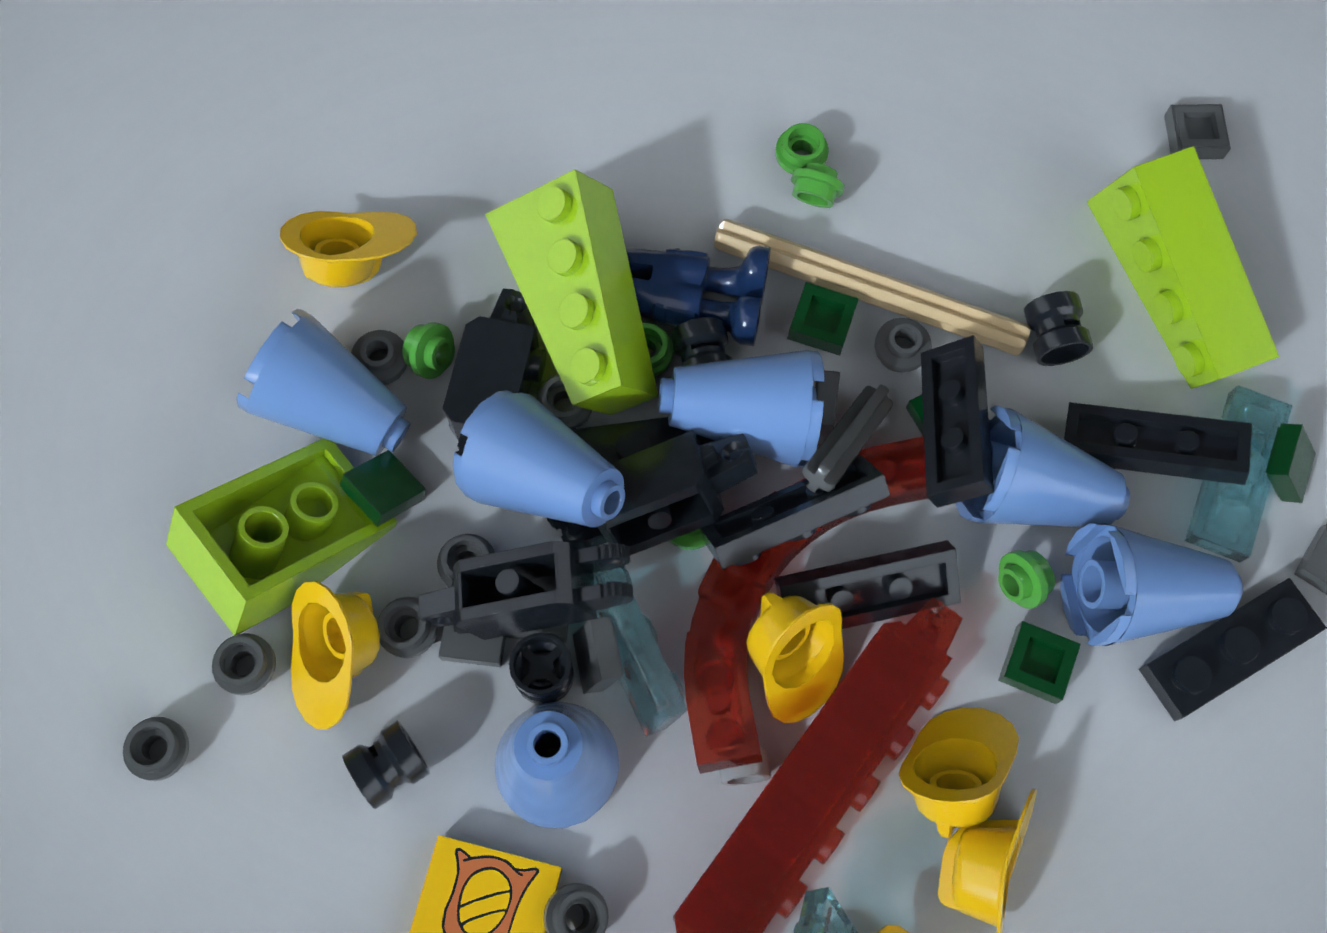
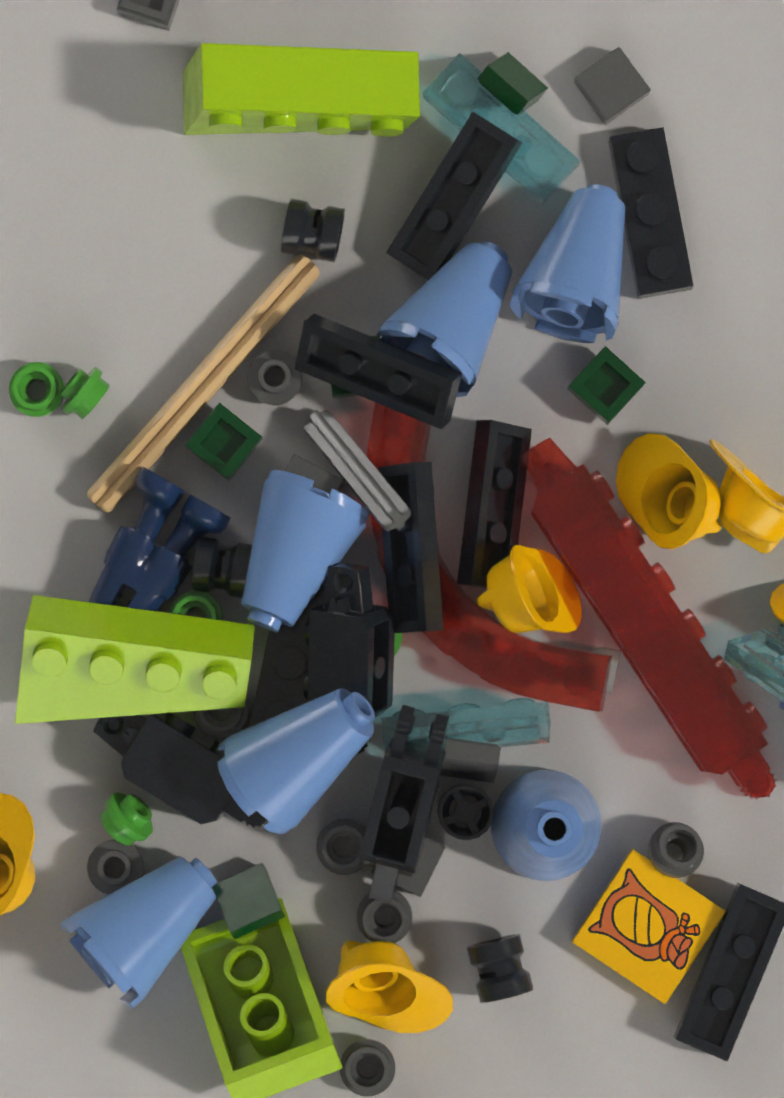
camera: 70 degrees left, 15 degrees up
(1026, 578) = (531, 365): bright green plate -> none

